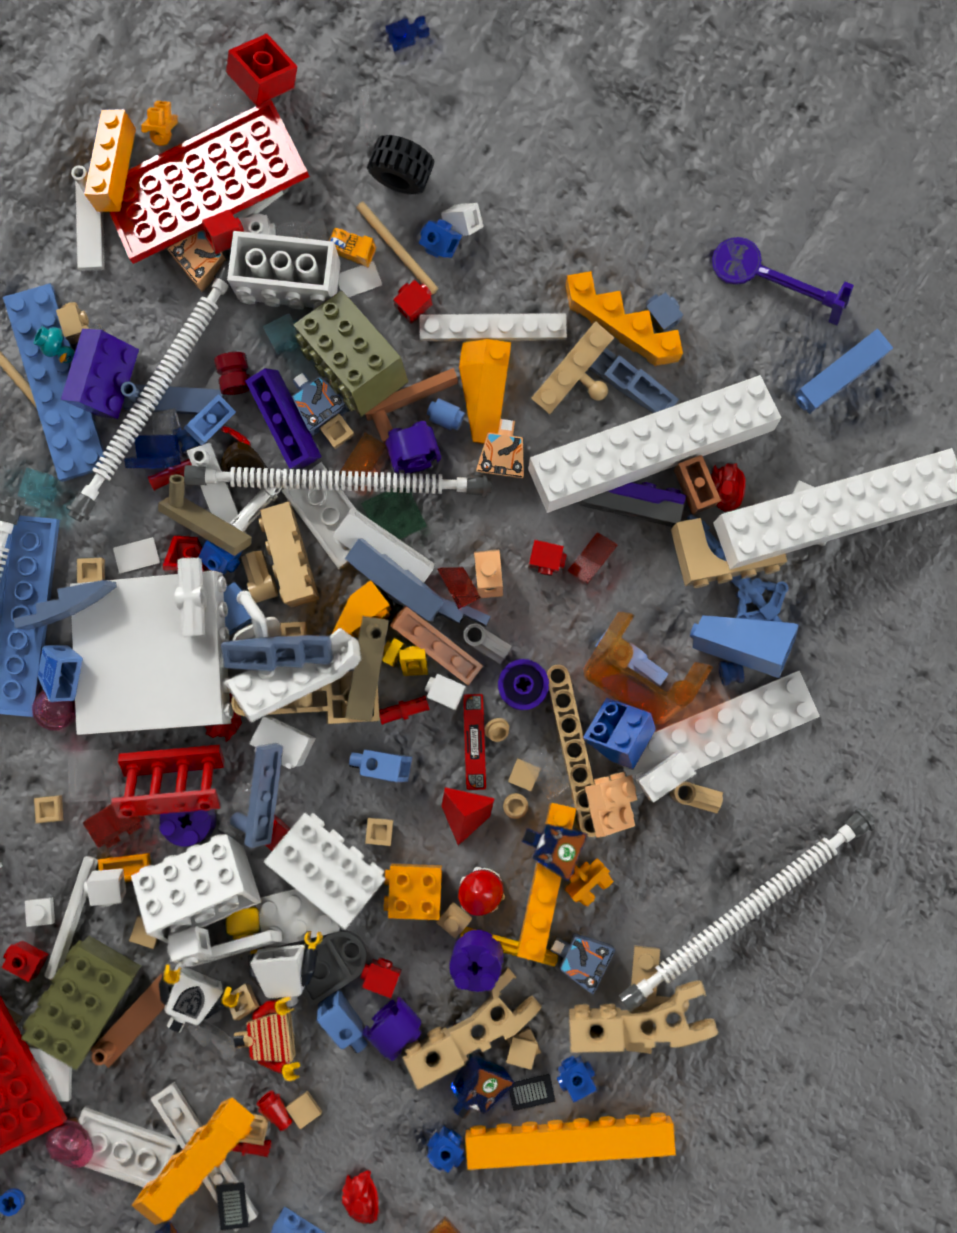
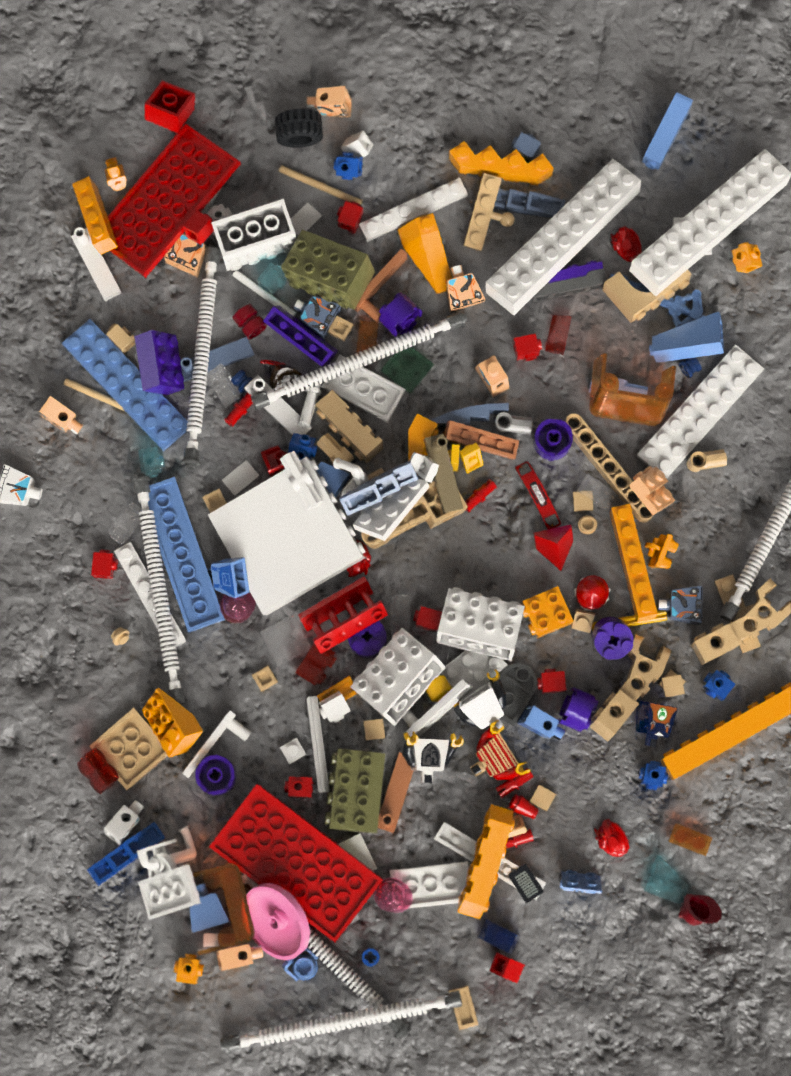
camera: 25 degrees left, 5 degrees down
(50, 344) = (115, 357): teal animal -> none
(70, 602) = (217, 523): sand blue slope -> none
(155, 452) = (222, 398): clear blue panel -> none
(189, 946) = (412, 717): white brick -> none
(200, 520) = (277, 431): dark tan piece -> none
(210, 420) = (250, 359): medium blue slope -> none
(246, 1003) = (468, 744): tan plate -> none
(263, 797) = (415, 591): sand blue piece -> none
(267, 345) = (260, 291): none -> white bar
(269, 1077) = (515, 783): none -> red axle
(294, 742) = (407, 553): white brick -> none
(354, 247) = (292, 197): light orange leg -> none
(359, 526) = (414, 392): white brick -> none
(379, 831) = (502, 585): tan plate -> none
(390, 765) = (491, 537): medium blue torso -> none
(394, 579) = (433, 406): sand blue slope -> none
(403, 34) = (253, 39): clear blue plate -> none
(445, 414) = (410, 283): medium blue brick -> none
(445, 691) = (502, 467): white brick -> none
(457, 151) = (331, 101): none -> light nougat torso
(459, 585) = (476, 393): clear red slope -> none
(497, 729) = (549, 478): tan plate -> none
(531, 1092) = (692, 713): black sticker -> none
(556, 848) = (629, 532): torso -> none
(620, 732) = (635, 440): blue slope -> none
(665, 776) = (679, 454): white brick -> none
(697, 484) = (605, 251): nougat brick -> none
(740, 260) = (561, 89): dark purple piece -> none
(864, 571) = (746, 257): none -> light orange brick

